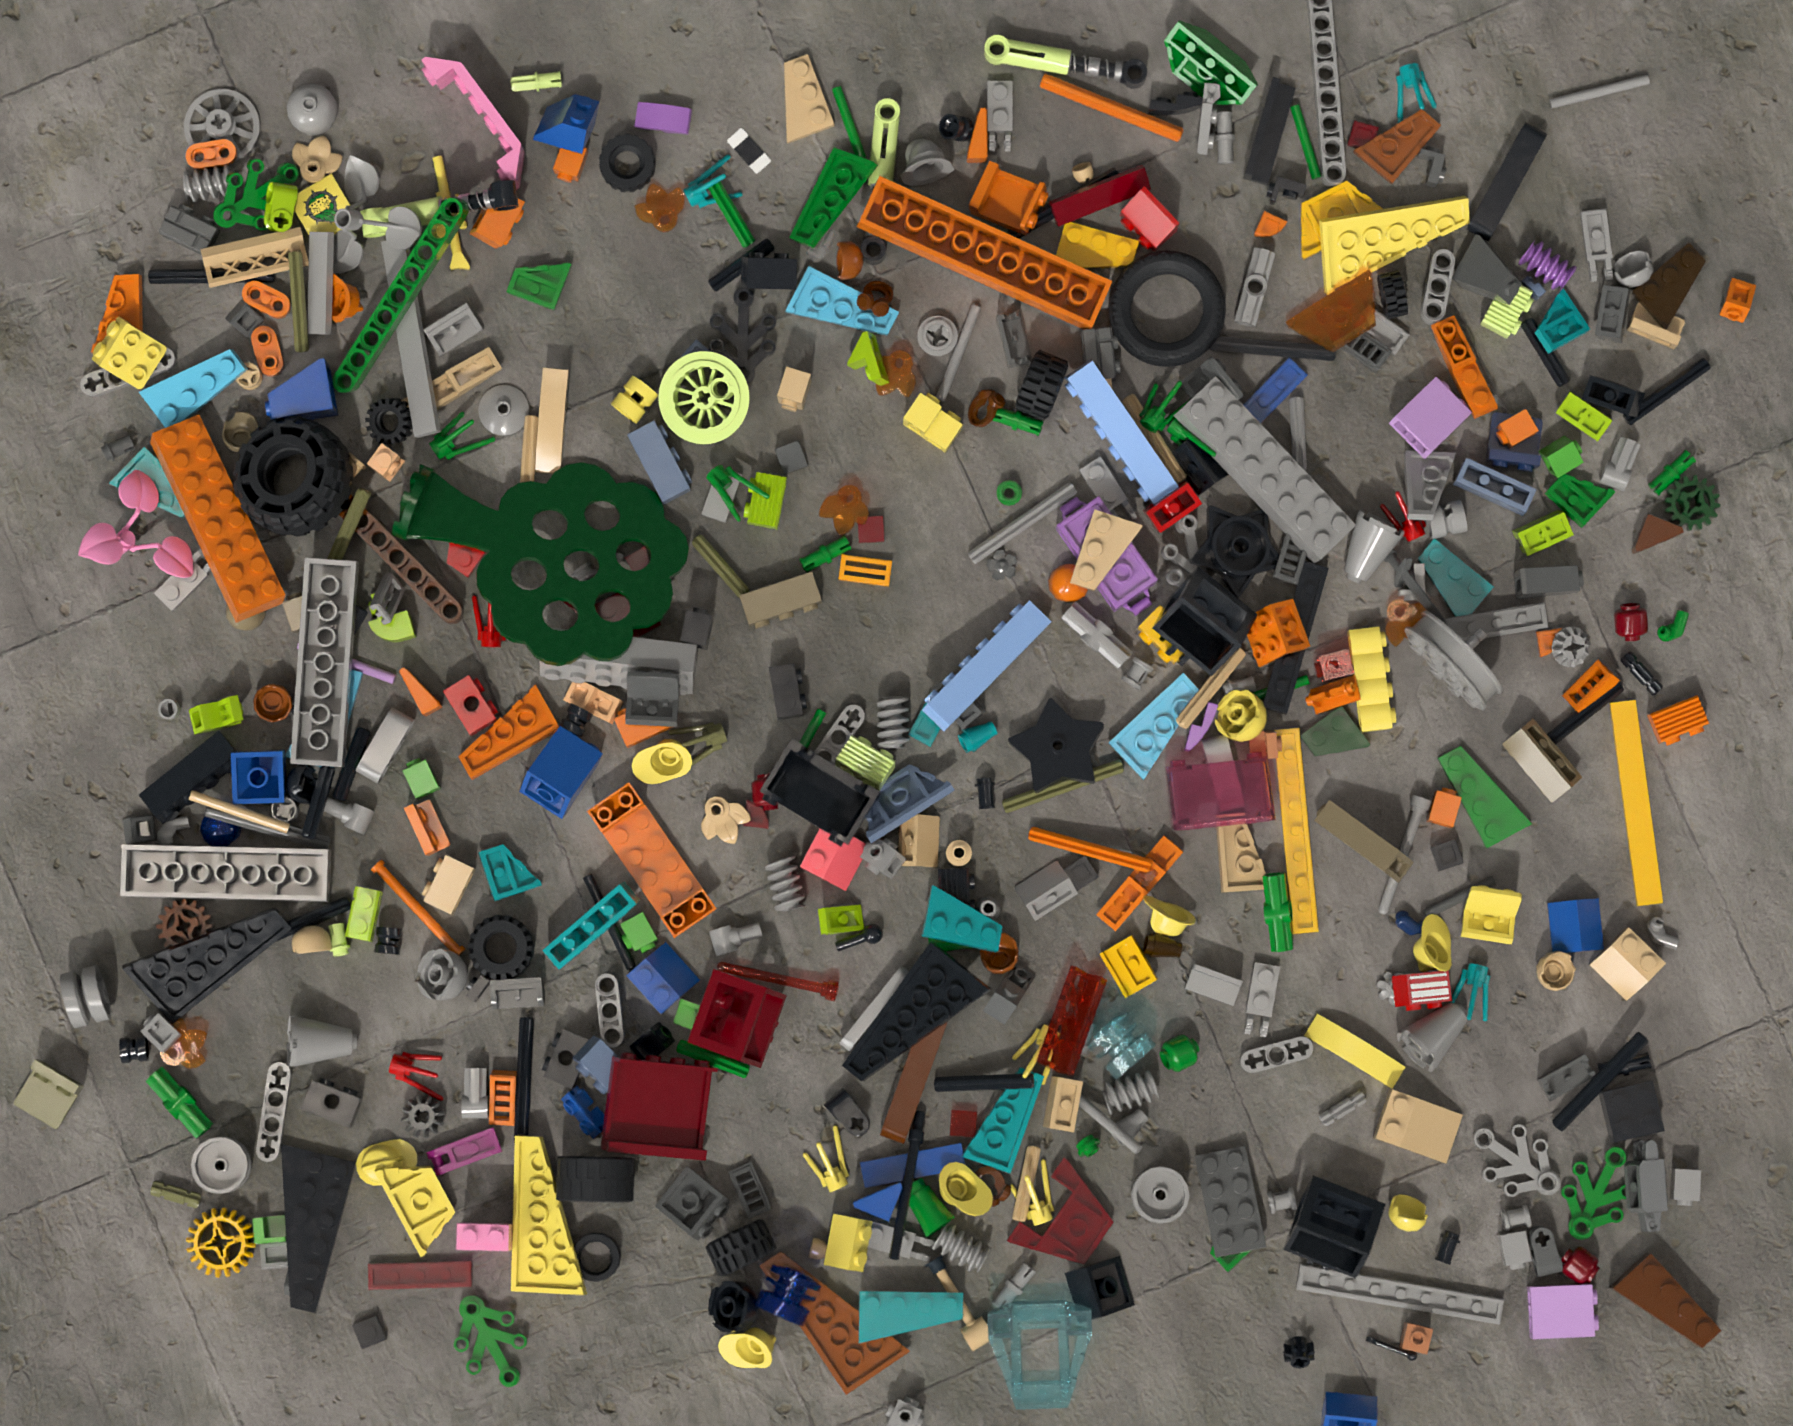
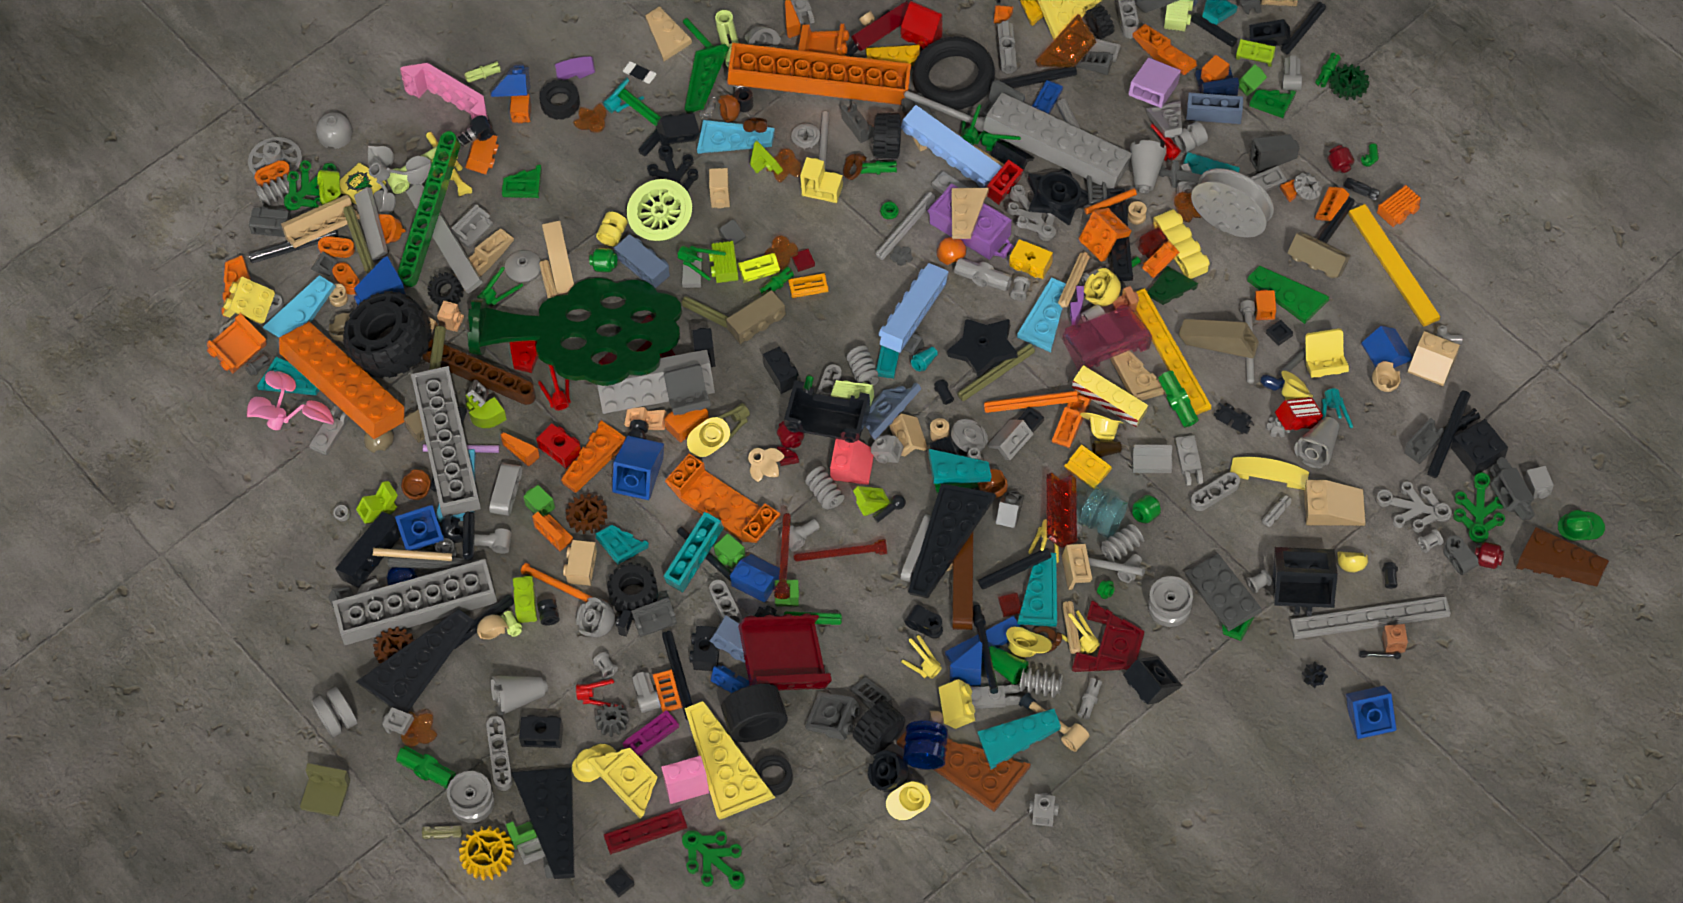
camera: 15 degrees left, 25 degrees down
(96, 411) = (236, 344): none -> orange panel
(134, 1049) = (381, 741): black wheel -> none
(316, 155) = (346, 158): tan plate -> none
(351, 762) = (484, 513): black axle -> none
(437, 1038) = (605, 665): none -> light grey bush
(471, 828) = (580, 508): none -> reddish brown gear
(609, 444) = (603, 260): none -> green head
(685, 1017) = (782, 590): none -> clear red piece
(737, 1018) = (823, 581): dark red piece -> none
(807, 525) = (759, 267): none -> neon yellow hinge
(956, 127) = (773, 15): black wheel -> none
(994, 872) = (969, 435): none -> light grey tile
(1060, 1314) = (1119, 709): clear light blue windscreen -> none
(1136, 367) = (947, 110): none -> light grey piece
(1191, 880) = (1109, 396): none -> light yellow brick
(1204, 622) = (1053, 234): black piece -> none
(1301, 586) = (1113, 200): none -> orange bar
(1329, 613) = (1135, 217): none -> tan wheel
(1336, 950) = (1227, 413): none -> black hinge
(1514, 1249) = (1438, 560): light grey brick -> none
(1543, 532) = (1258, 125): lime hinge -> none
(1562, 1311) = (1490, 589): lavender brick -> none
(1653, 532) = (1333, 105): reddish brown slope -> none
(1714, 1258) = (1581, 526): none -> green piece

